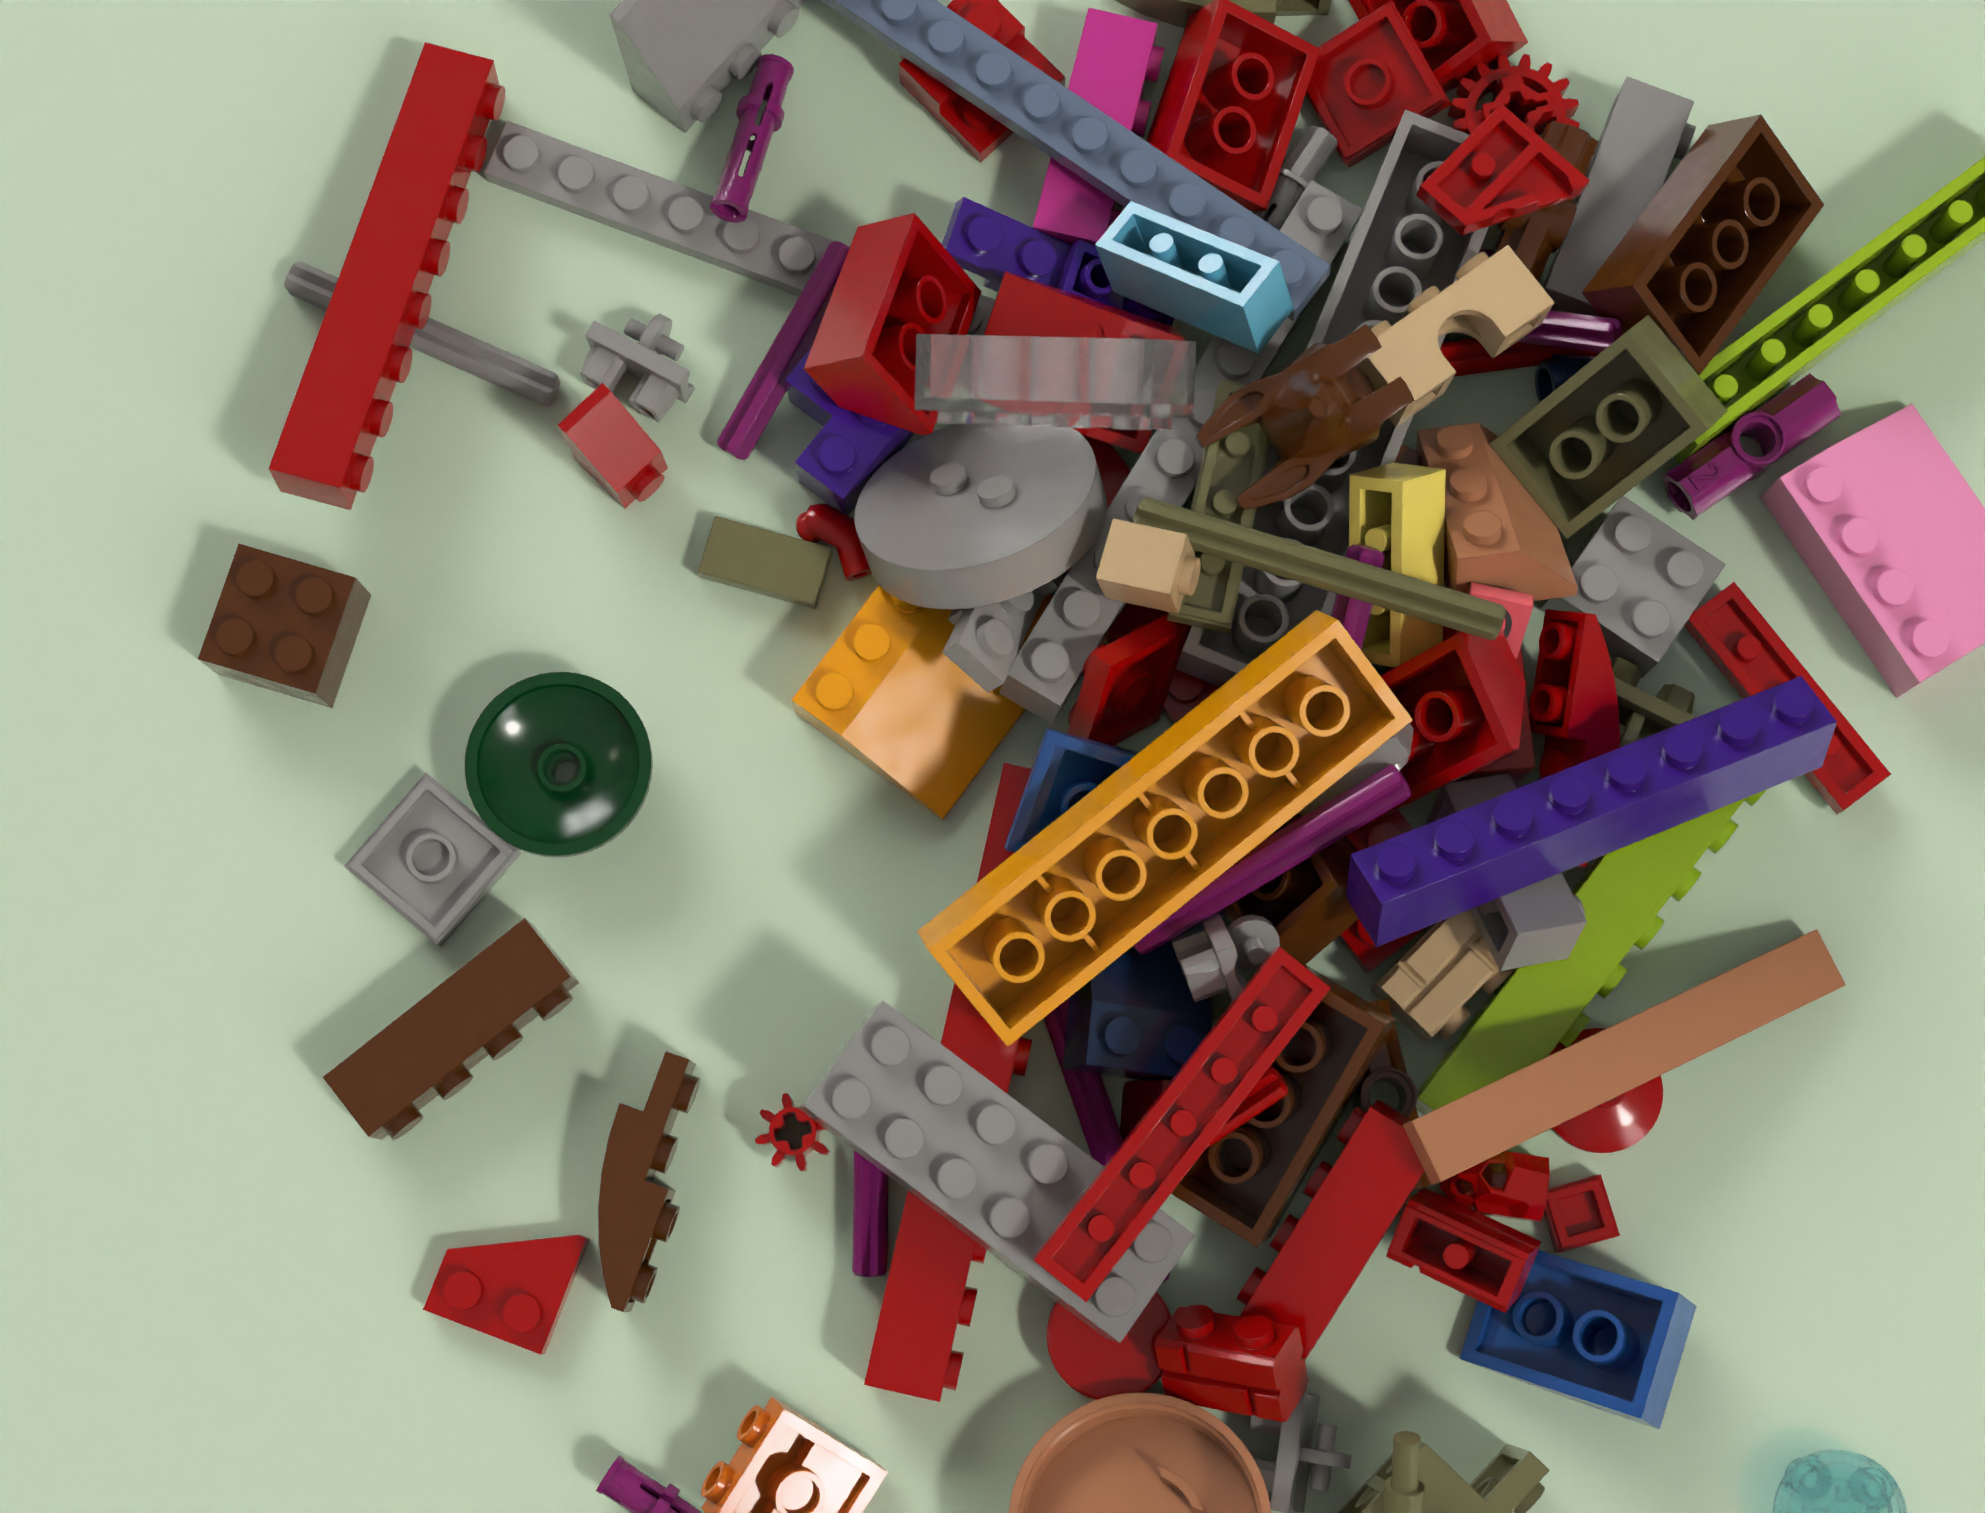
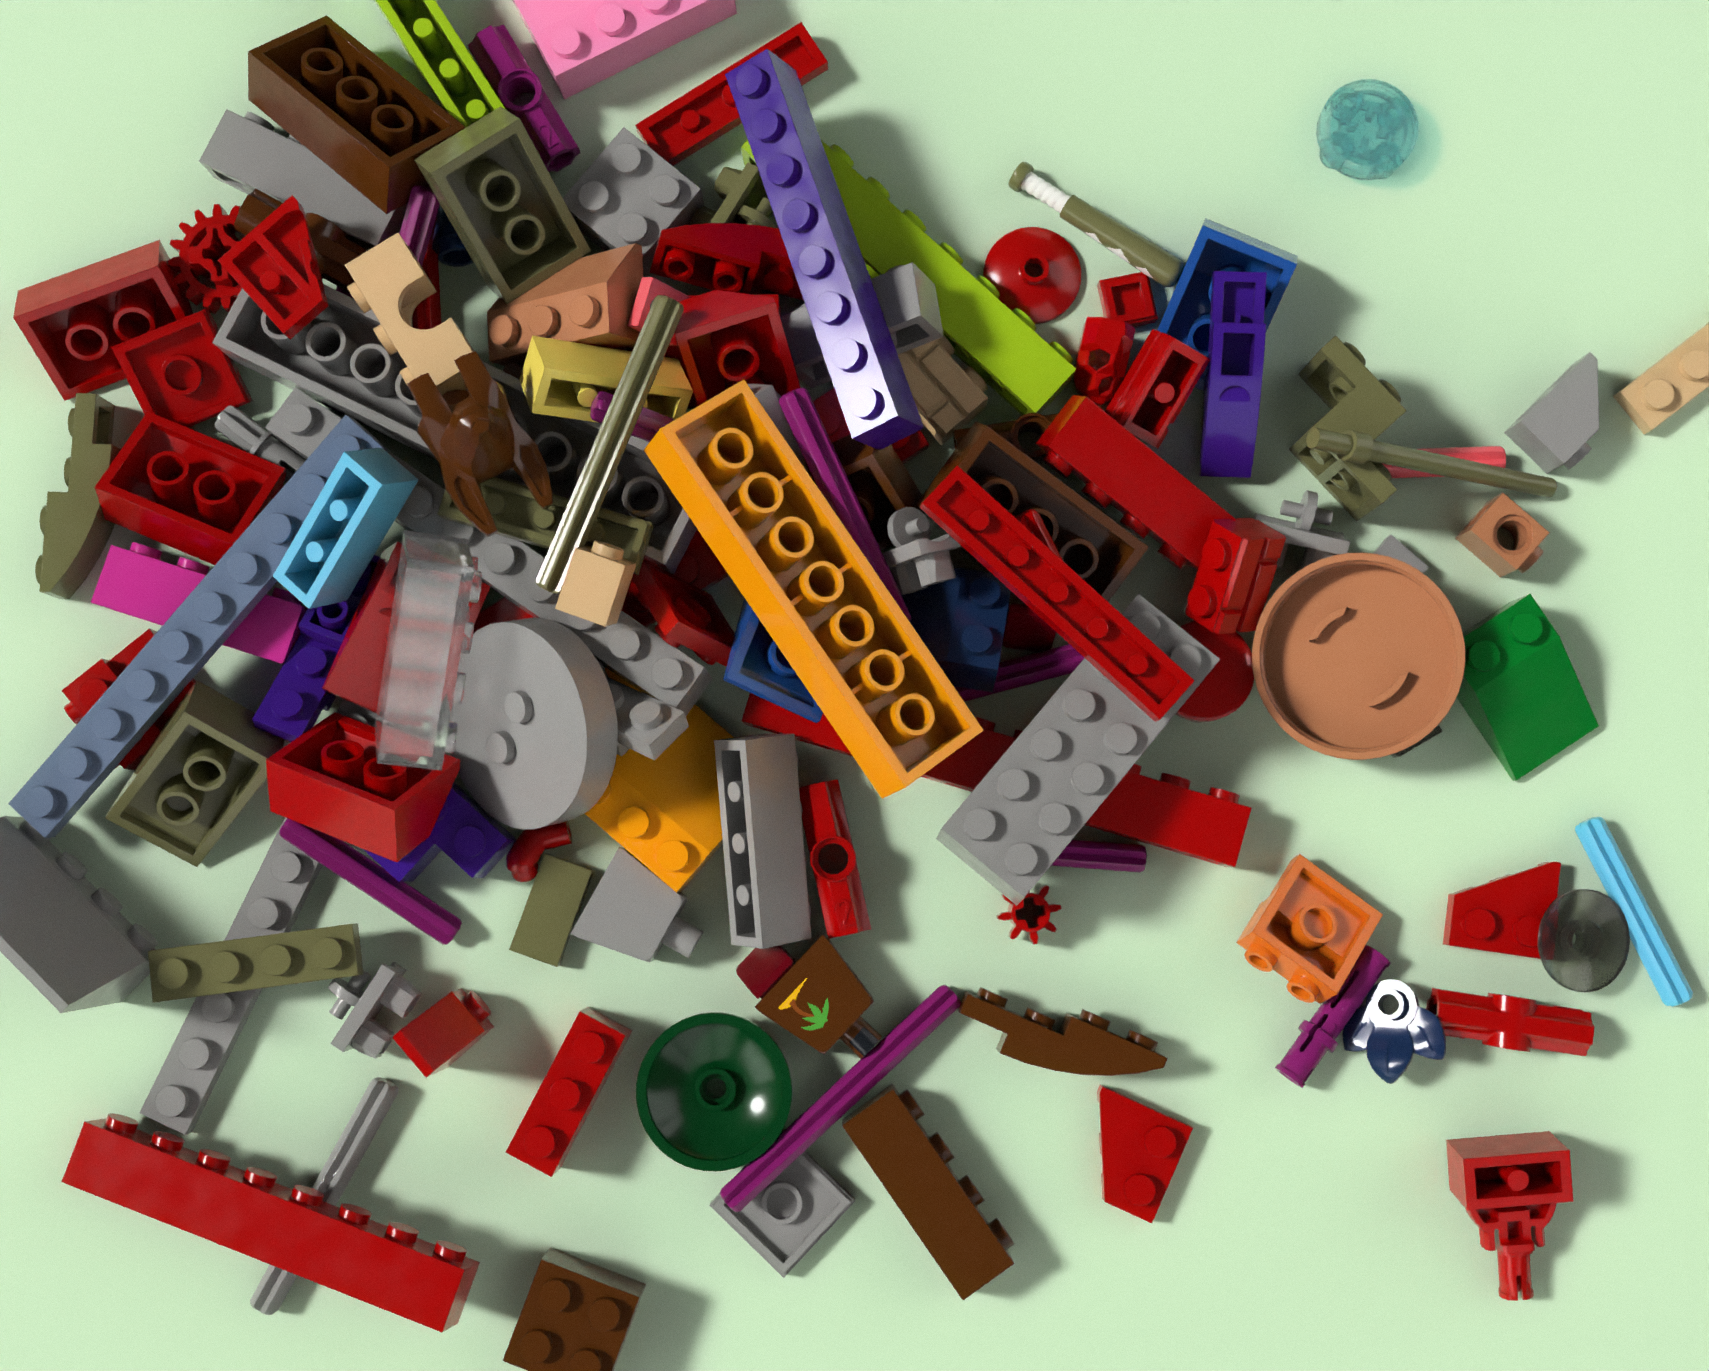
camera: 85 degrees left, 5 degrees up
(552, 597) = (569, 1091): none -> red brick
(559, 918) = (840, 1098): none -> magenta axle
(673, 887) = (822, 1001): none -> reddish brown torso
(683, 230) = (255, 962): none -> olive plate
(710, 818) = (764, 969): none -> dark red slope
(764, 658) = (636, 912): none -> light grey torso
(768, 84) = (130, 883): magenta pin -> none
(804, 898) = (839, 893): none -> red piece
(861, 799) = (763, 840): none -> light grey brick
(896, 143) = (195, 775): none -> olive slope
(1492, 1346) = (1233, 374): none -> dark purple slope
(1622, 1057) = (1017, 251): nougat tile -> none
(1659, 1188) = (1114, 236): none -> olive piece

